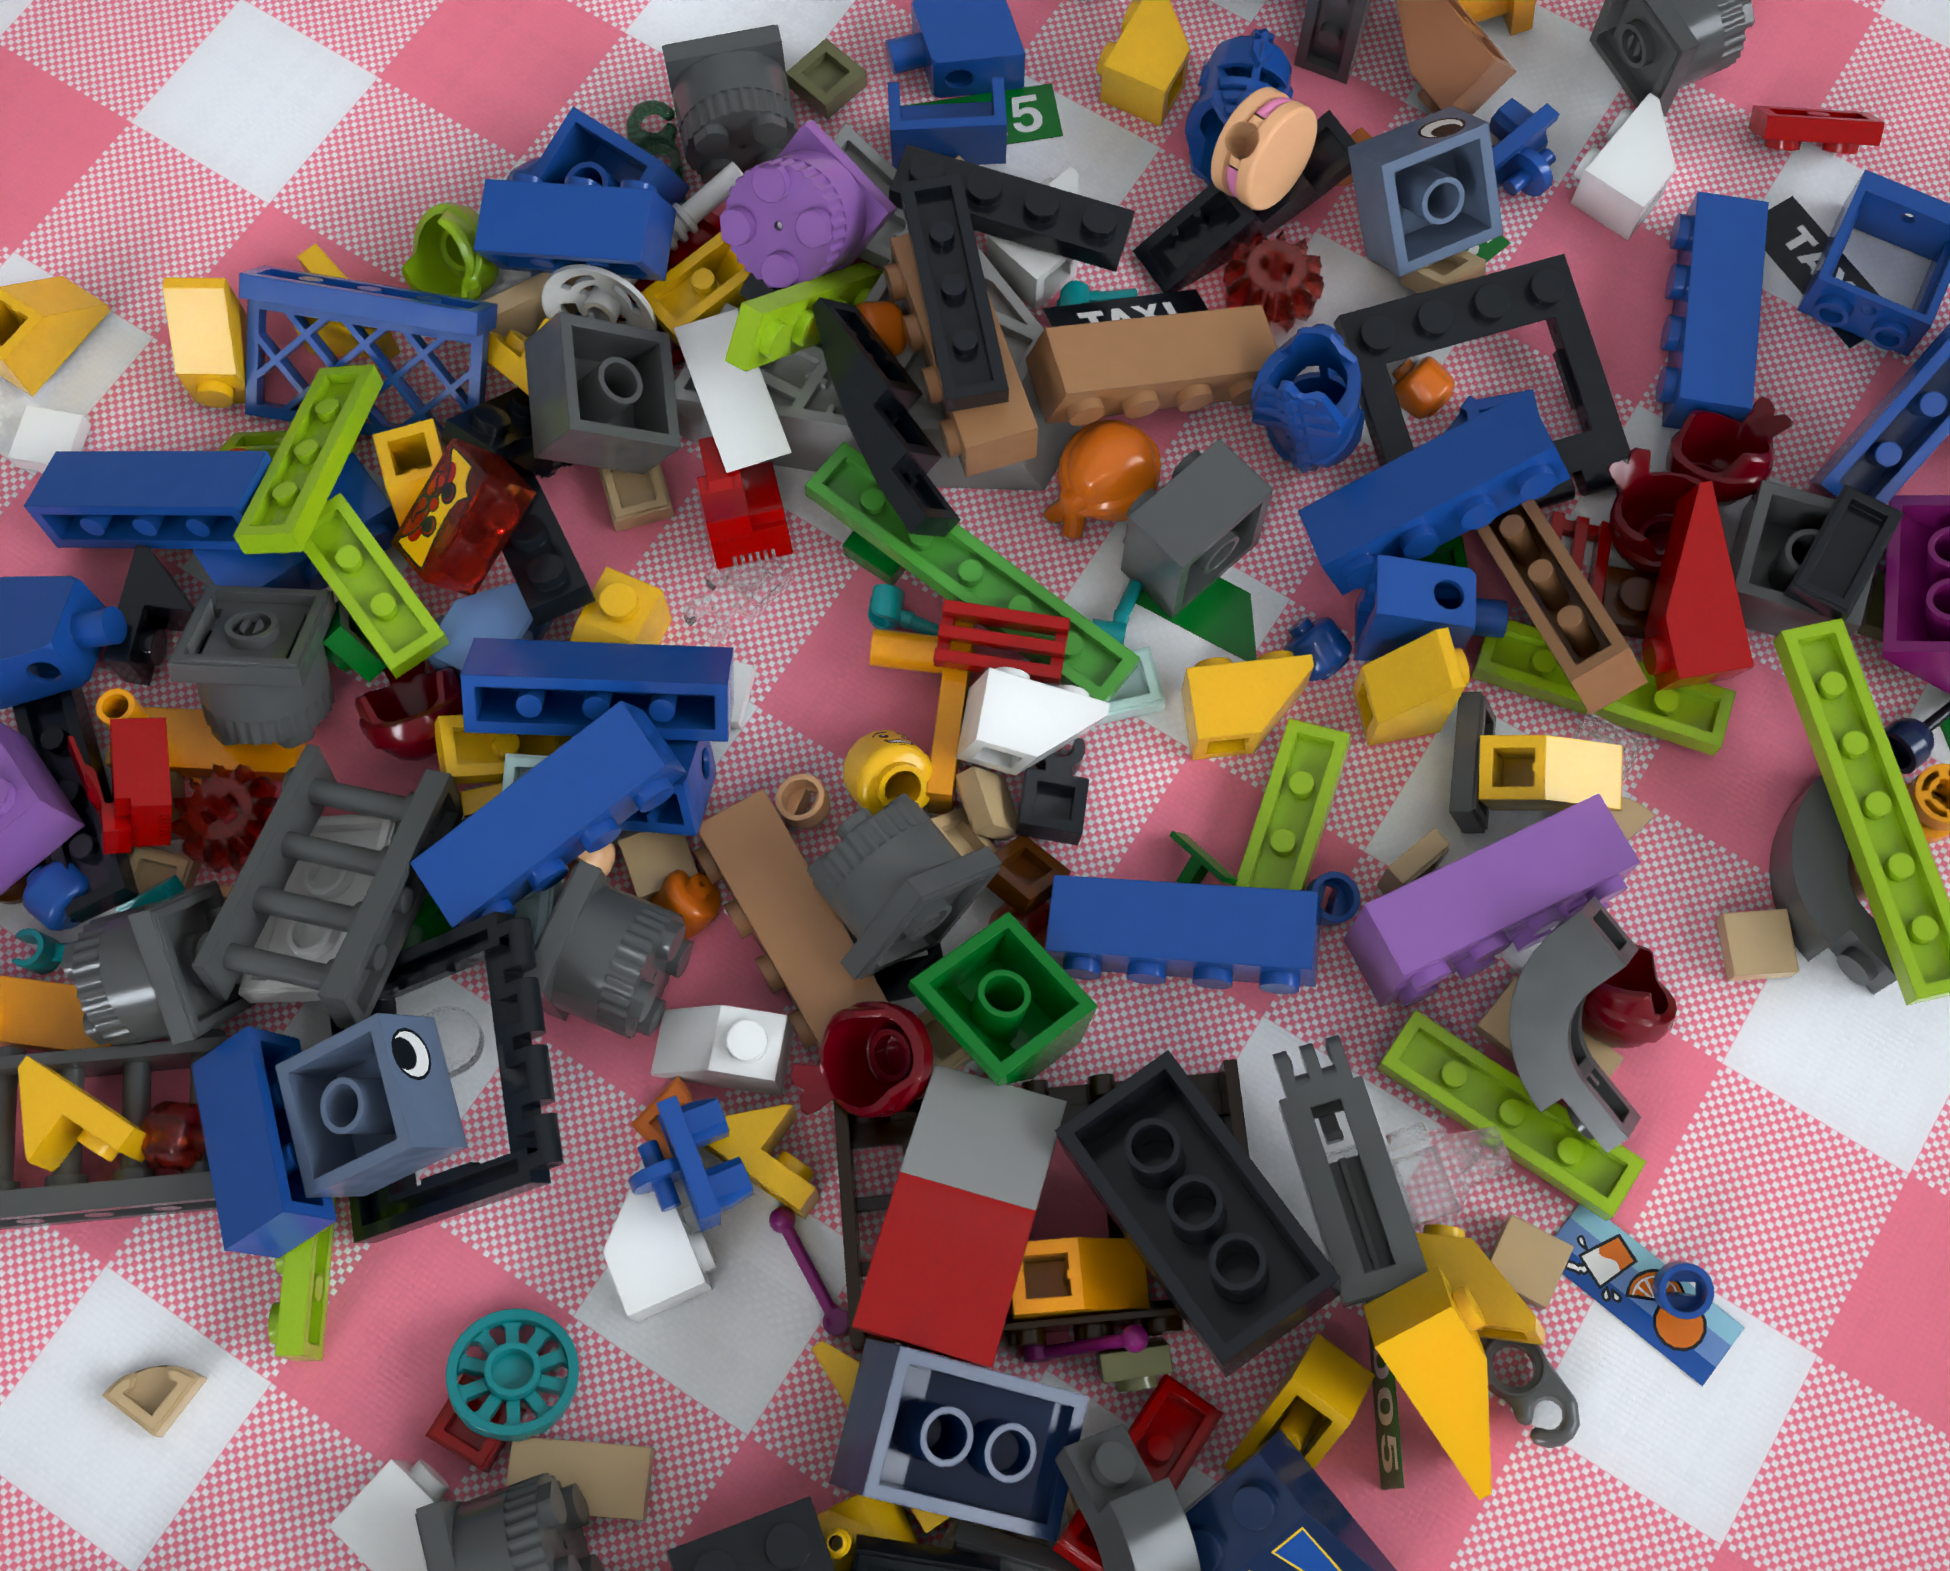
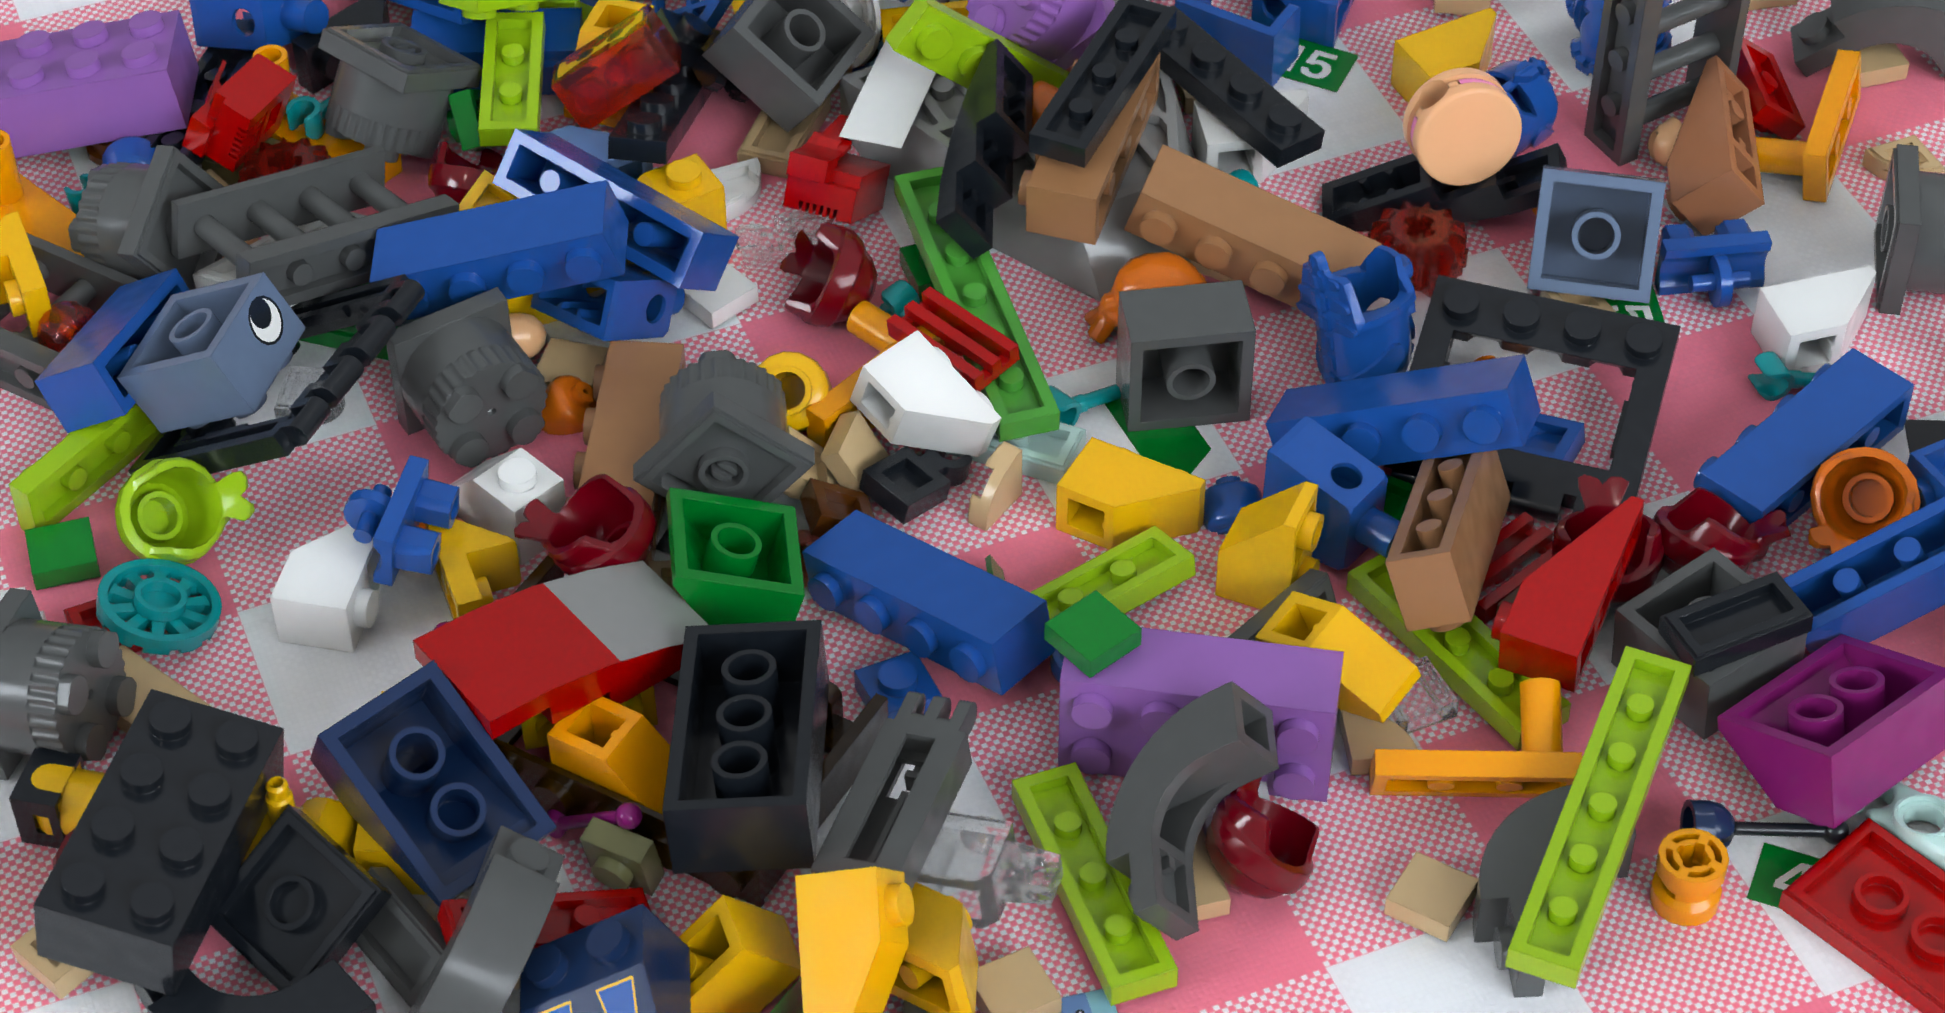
camera: 35 degrees right, 25 degrees down
(190, 724) = (309, 112): none -> teal hand
(365, 1370) = (62, 553): none -> green tile
(452, 1270) = (178, 509): none -> lime hat
(637, 555) = (741, 186): none -> white tile
(822, 622) = (833, 274): none -> dark red hat
(1127, 759) = (1001, 489): none -> tan tile
(1205, 1023) = (894, 680): none -> blue plate
(1382, 40) = (1663, 140): none -> light nougat hinge
(1404, 916) = (1092, 633): none -> green tile
(1631, 245) = (1776, 378): none -> teal hand
(1756, 780) = (1471, 773): none -> light orange piece
(1806, 346) = (1859, 495): none -> orange hat

